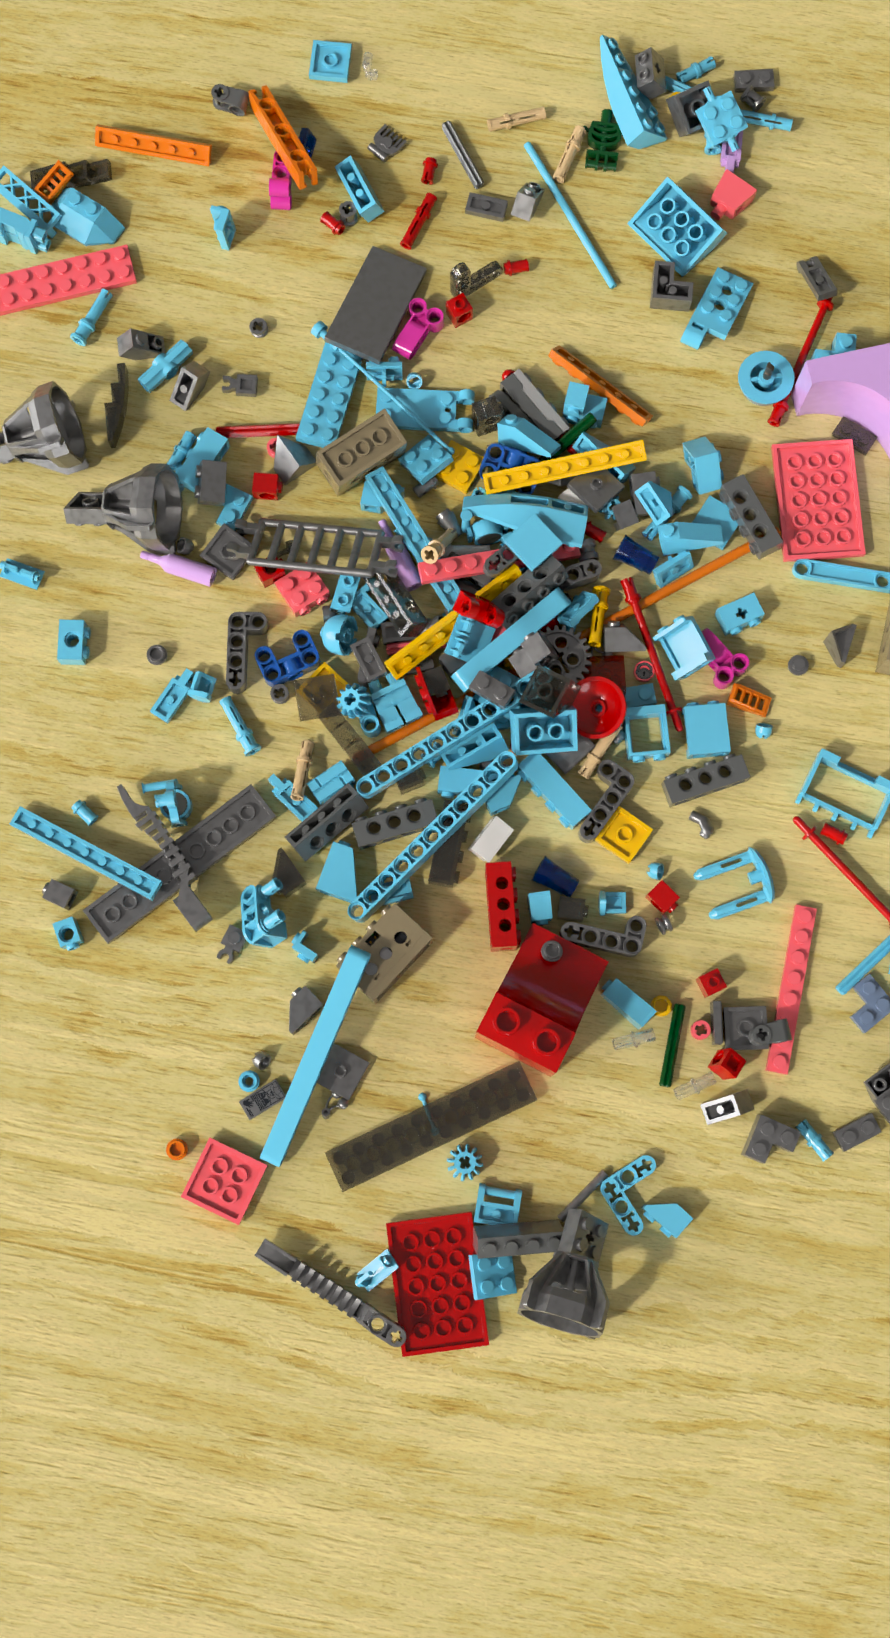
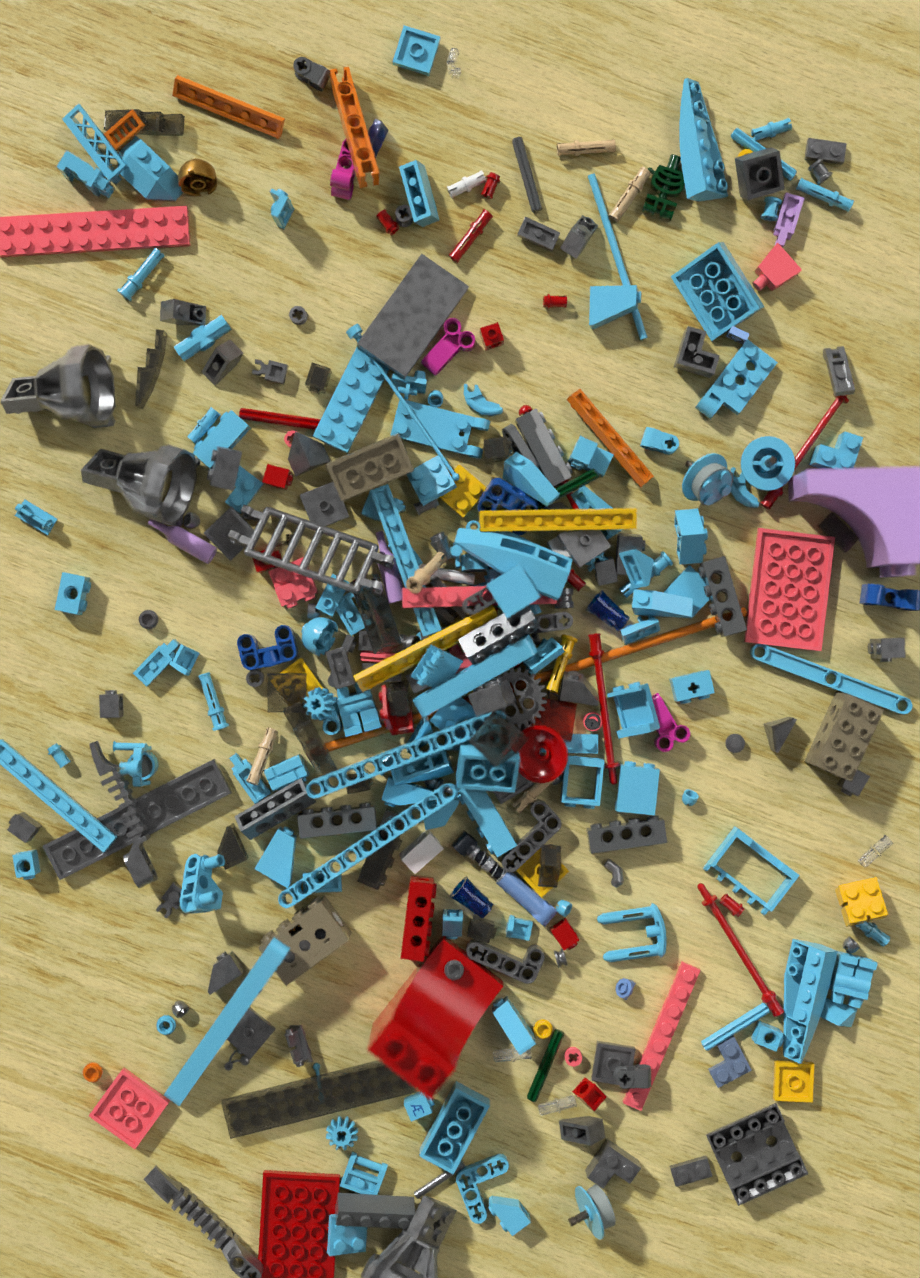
camera: 10 degrees right, 10 degrees up
(132, 748) = (111, 704): none -> flat silver brick
(134, 214) = (197, 177): none -> pearl gold cylinder
(241, 652) = (226, 634): flat silver beam -> none
(262, 1099) = (175, 1043): flat silver tile -> none
(290, 383) = (318, 378): none -> clear smoke brick
(305, 953) = (235, 923): medium azure bracket -> none
(320, 505) = (324, 505): none -> flat silver plate
(376, 1271) = (247, 1211): medium azure hinge -> none
(383, 146) = (452, 150): flat silver piece -> none
(402, 1079) = (296, 1037): none -> flat silver hinge
(404, 174) = (466, 184): none -> white pin
(459, 378) = (479, 403): none -> medium azure piece
(464, 282) = (499, 311): clear smoke beam -> none
(478, 608) = (448, 643): red piece -> none
(492, 689) = (446, 724): flat silver plate -> none
(543, 1114) = (418, 1105): none -> medium azure brick
(574, 256) = (611, 303): none -> medium azure slope
(587, 1129) = (454, 1127): none -> medium azure brick
(629, 875) = (508, 881): none -> piece
(631, 824) = (549, 865): none -> clear smoke slope
(649, 379) = (655, 441): none -> medium azure piece
(650, 73) = (725, 126): flat silver brick -> none
(707, 264) = (737, 335): none -> light blue tile
(708, 403) = (707, 479): none -> medium azure piece
(711, 983) = (591, 1019): red brick -> none
(716, 1022) = (588, 1055): flat silver tile -> none
(721, 118) = (783, 191): medium azure plate -> none
(739, 944) = (624, 988): none -> medium blue plate
(742, 413) = (741, 493): none -> medium azure piece
(746, 707) = (669, 759): orange slope -> none
(759, 1189) = (594, 1210): none -> piece
(814, 1140) = (651, 1171): medium azure pin -> none

